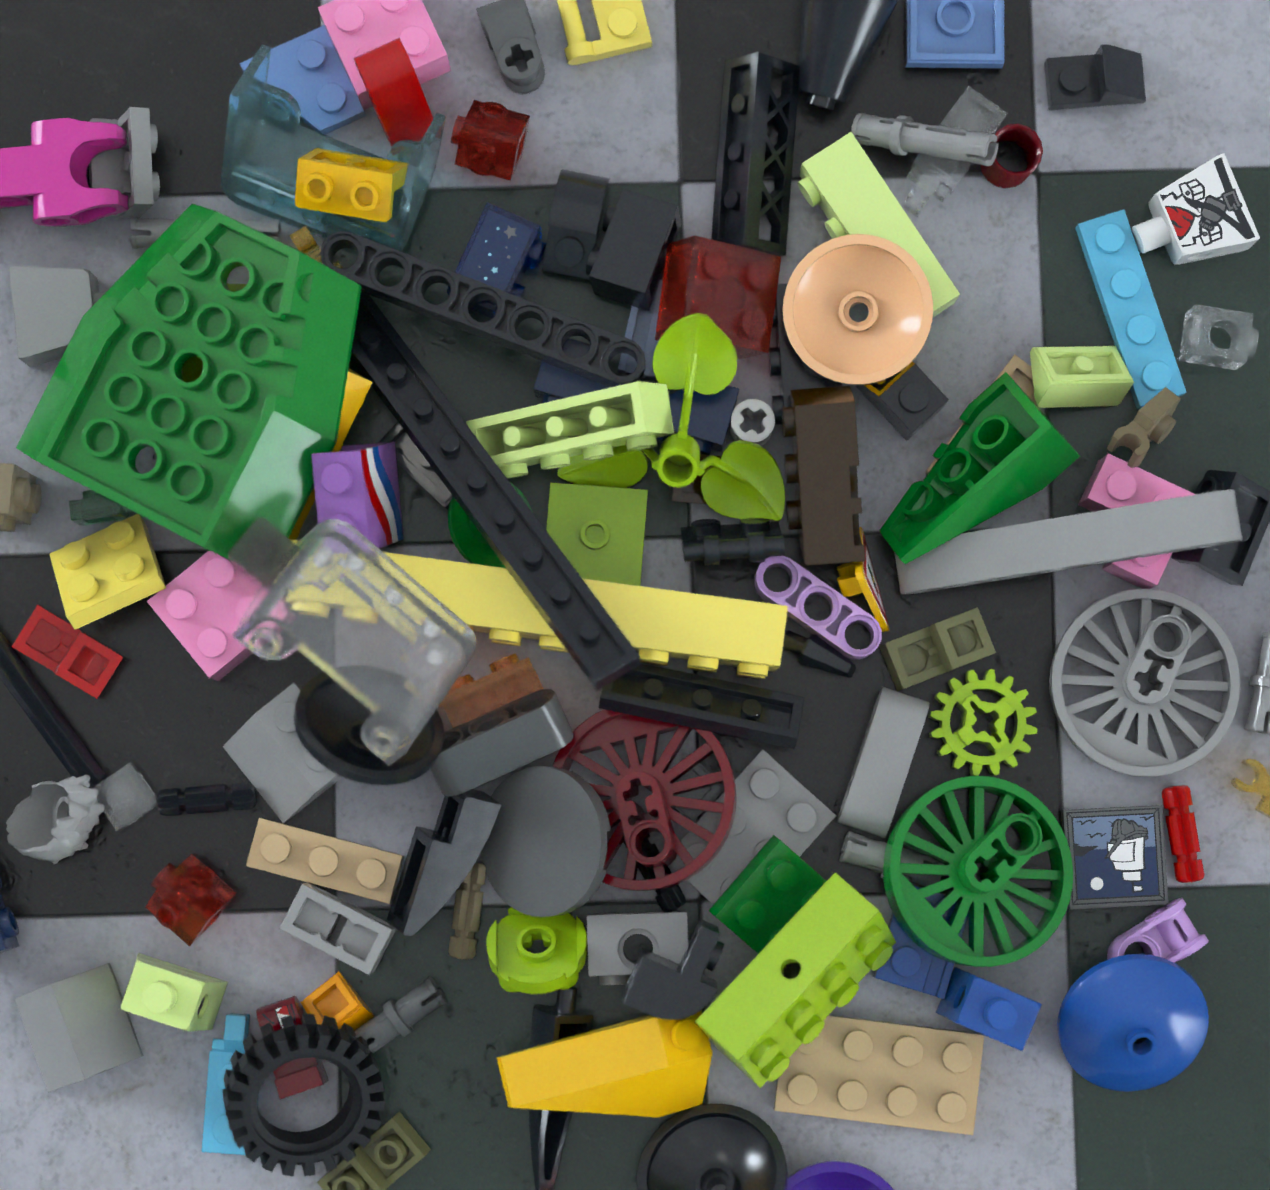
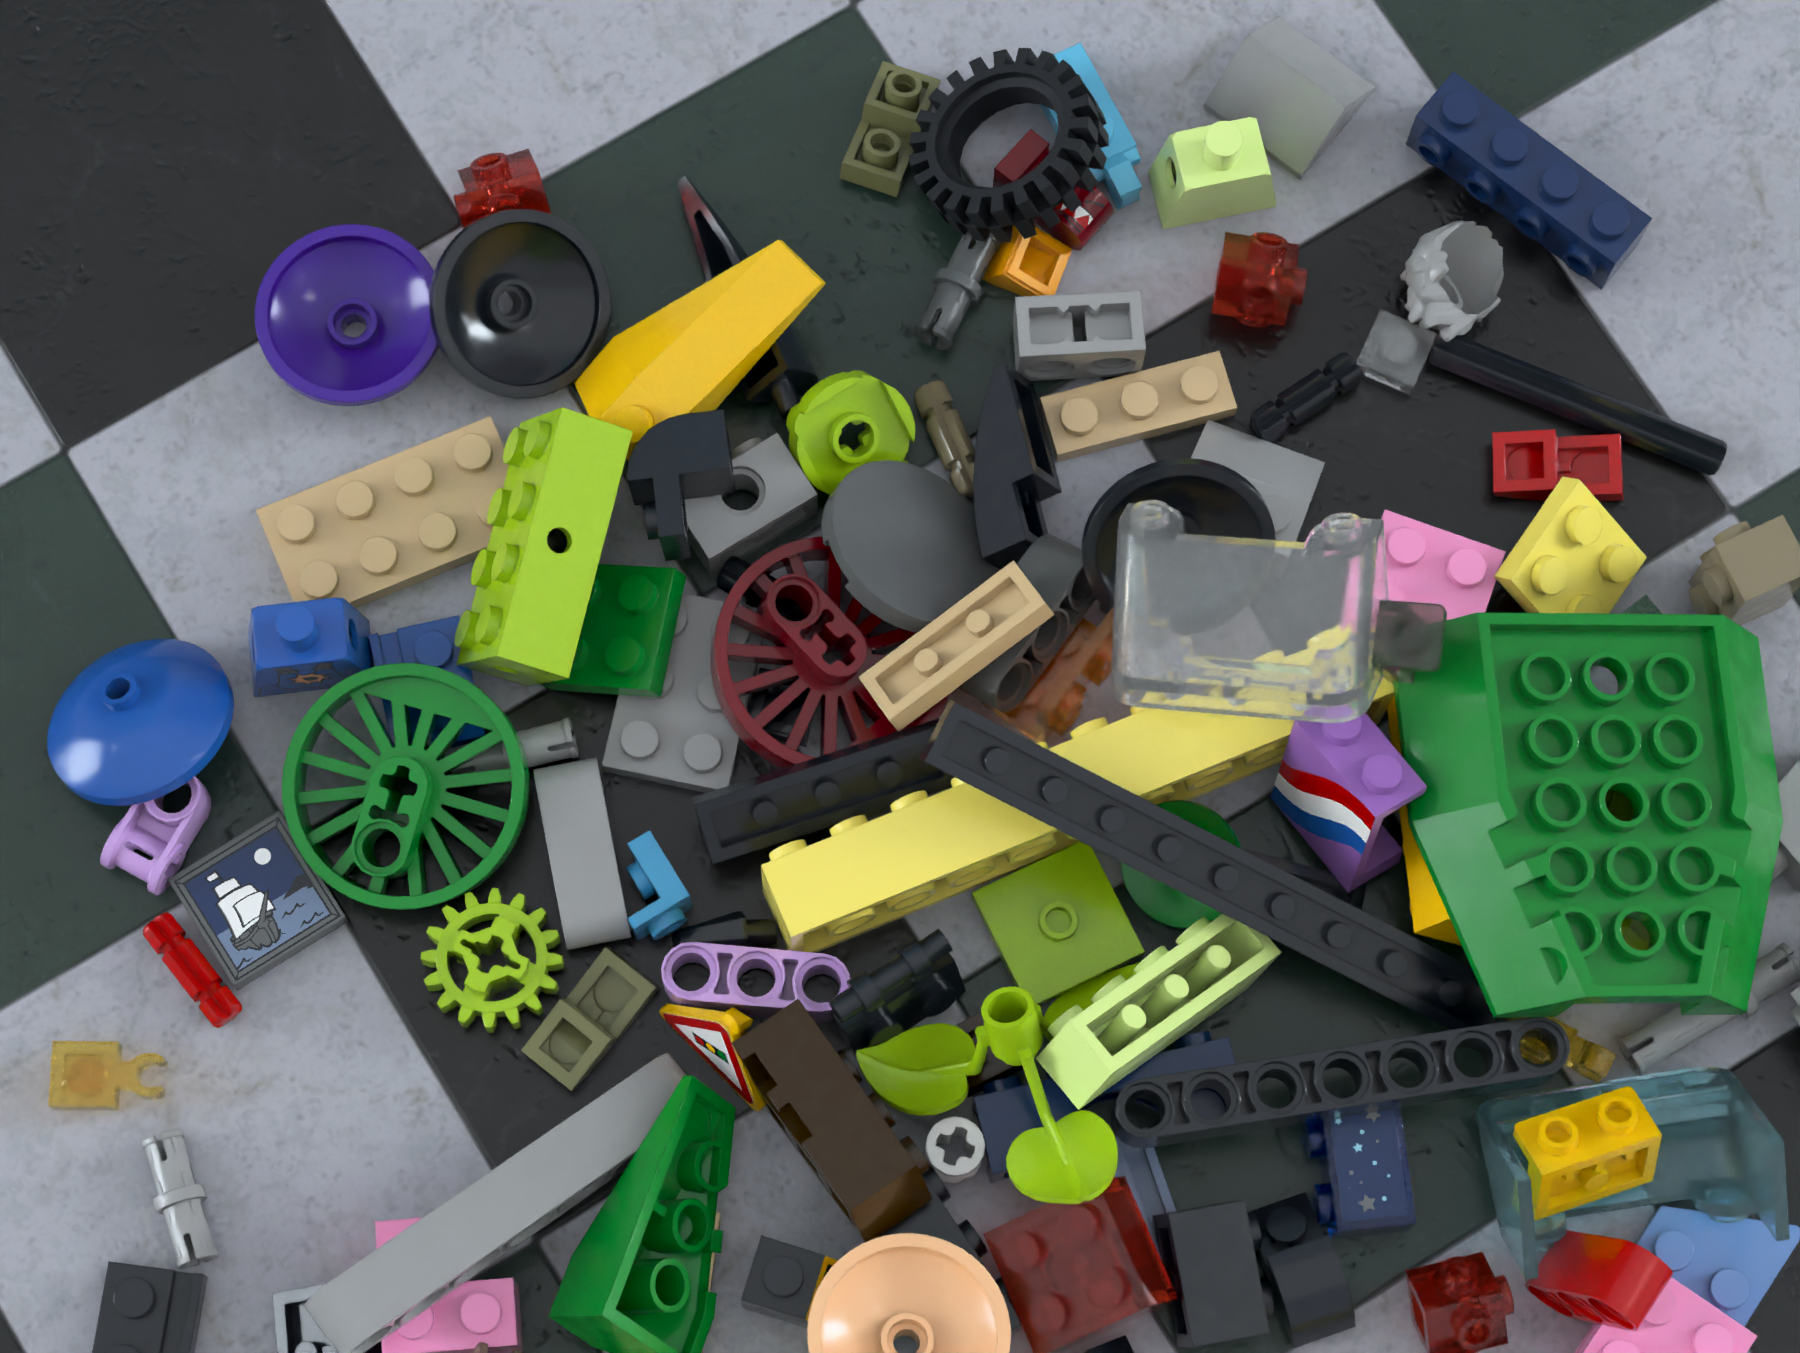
camera: 145 degrees right, 10 degrees down
(559, 745) = (956, 646): none -> tan plate
(843, 718) = (655, 876): none -> dark azure bracket
(1113, 749) = (321, 1017): light grey piece -> none

